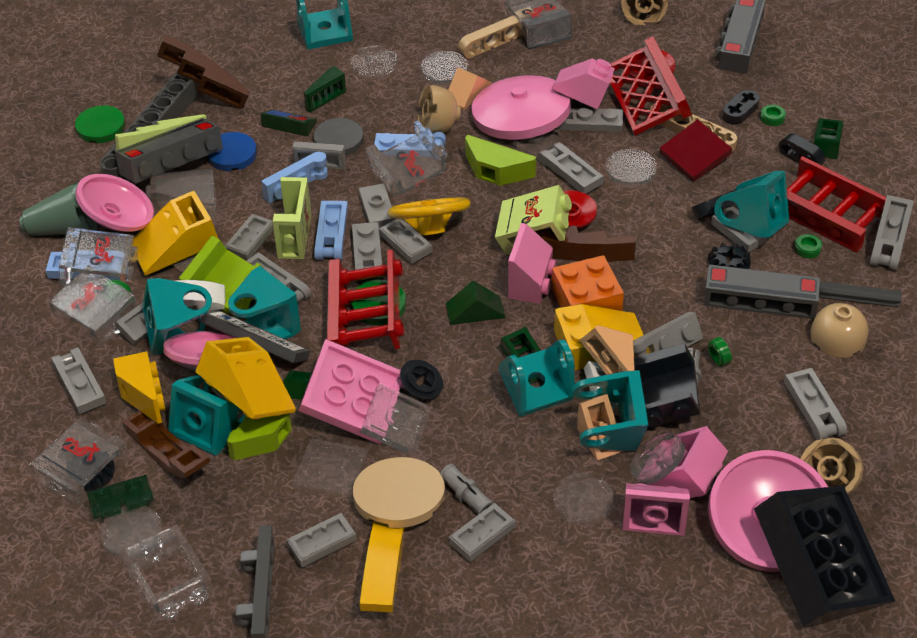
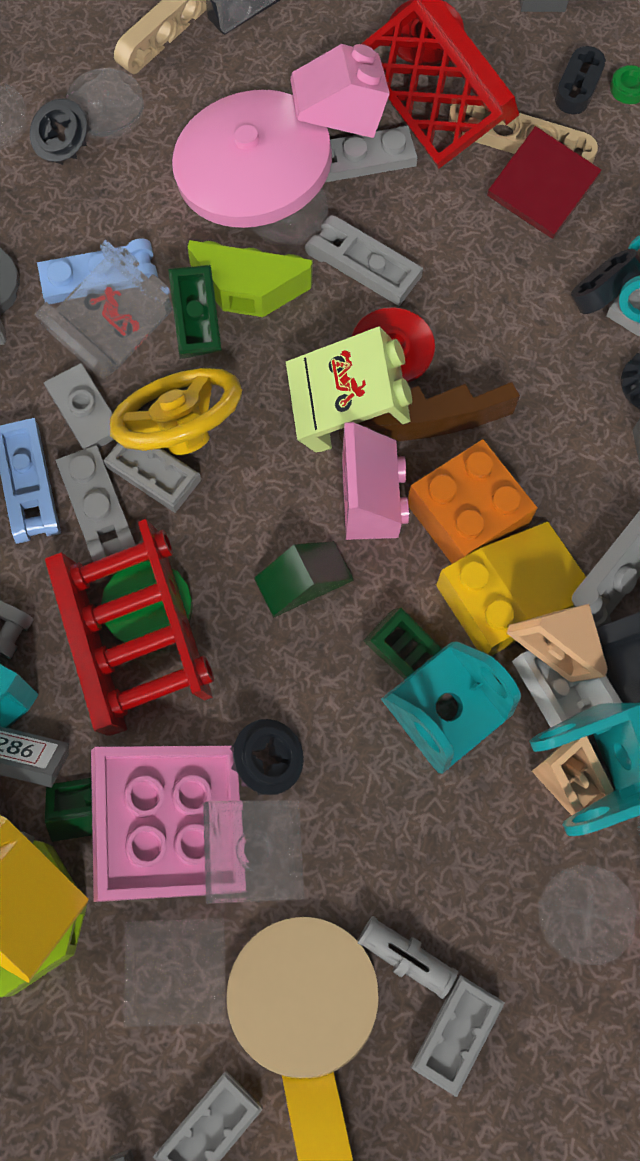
camera: 20 degrees left, 25 degrees up
(403, 74) = (44, 130): none -> black gear
(438, 109) = (123, 196): tan cylinder -> none
(457, 169) = (194, 311): none -> dark green slope
(466, 87) = (152, 138): light nougat slope -> none
(631, 168) = (454, 237): clear tile -> none

